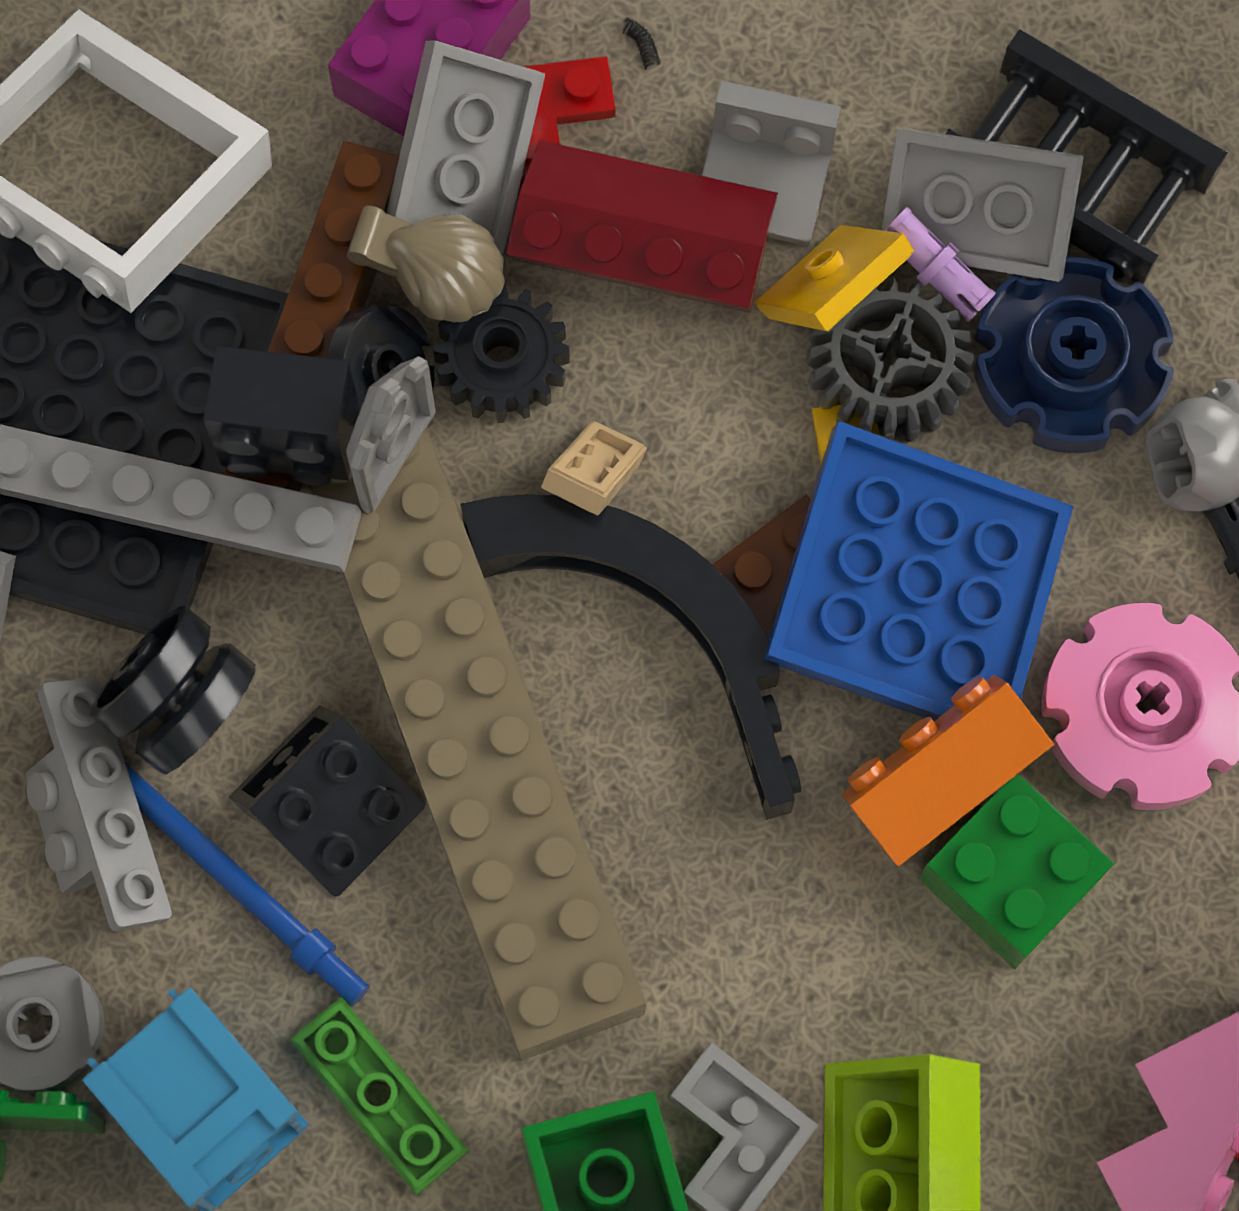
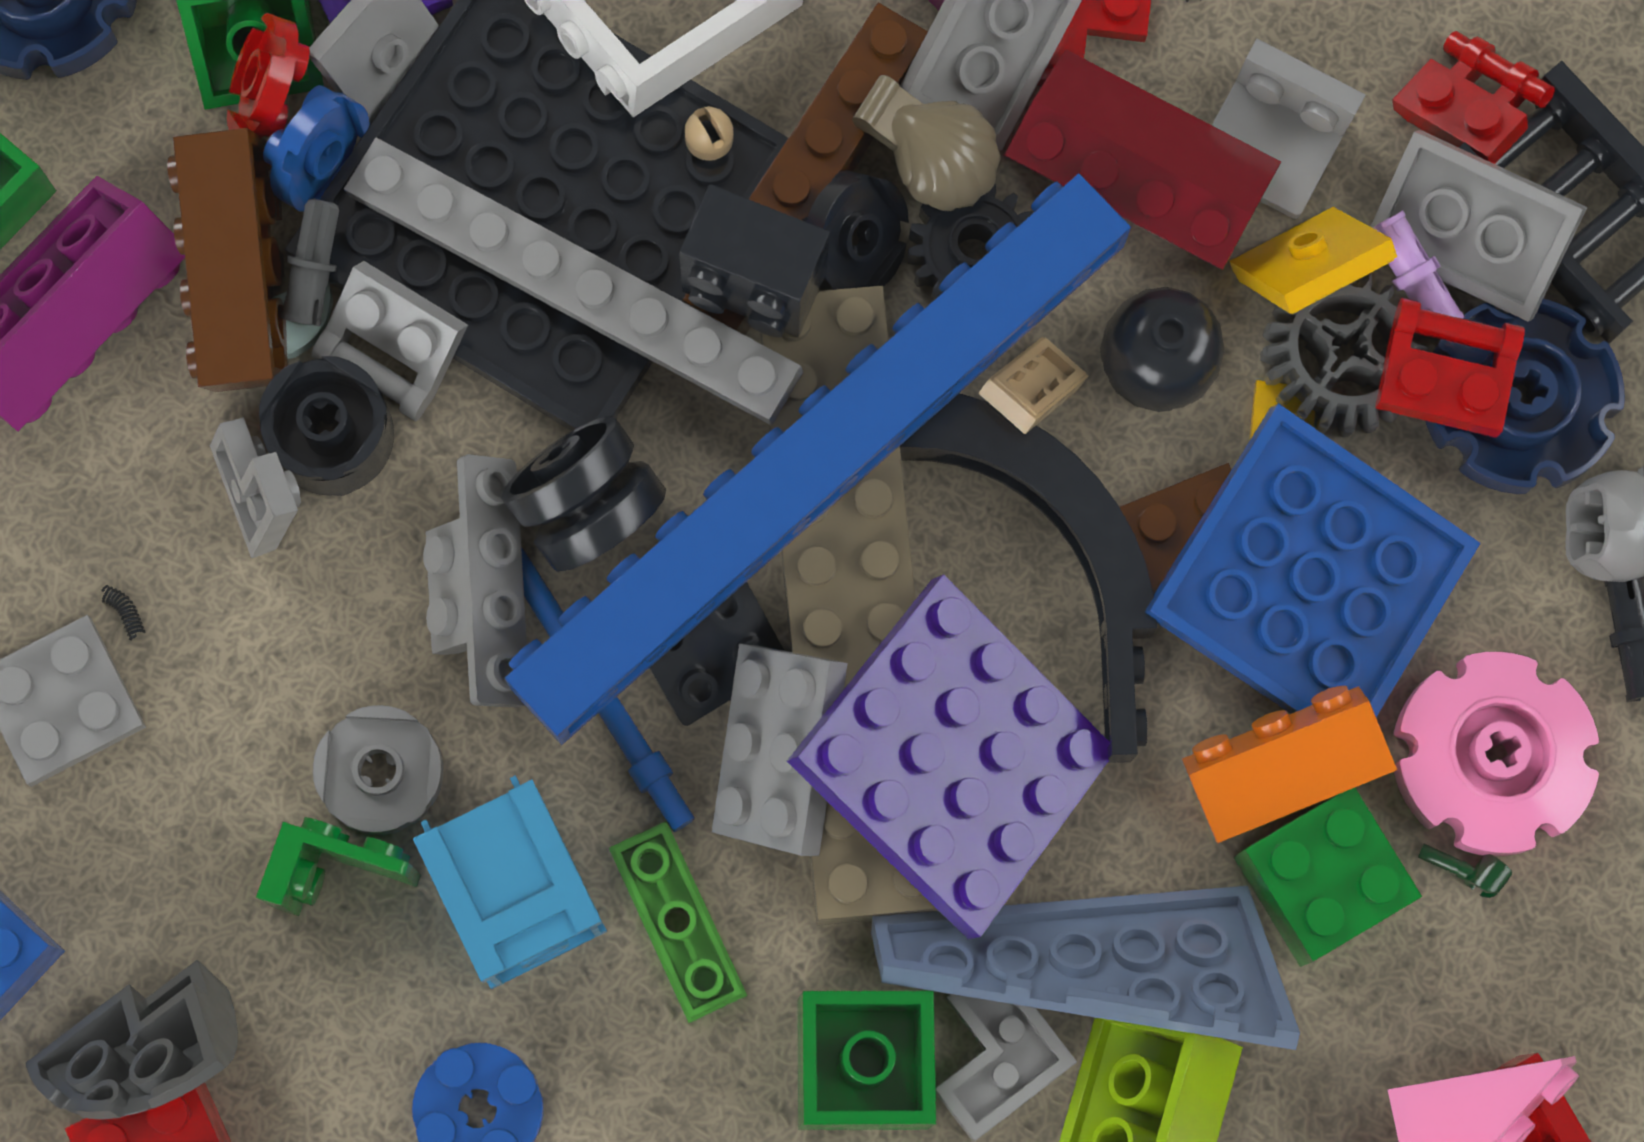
camera: 10 degrees right, 5 degrees up
(200, 316) = (698, 140): none -> tan hinge
(389, 428) = (850, 303): light grey tile -> none
(392, 598) = (816, 459): none -> blue brick
(435, 891) = (770, 713): none -> light grey plate
(611, 851) = (953, 756): none -> plate
(712, 402) = (1162, 349): none -> black cylinder
(853, 1003) = (1136, 959): none -> sand blue wing
(935, 101) = (1459, 111): none -> red plate
(995, 364) = (1445, 387): none -> red plate
(1173, 827) = (1488, 874): none -> dark green hand

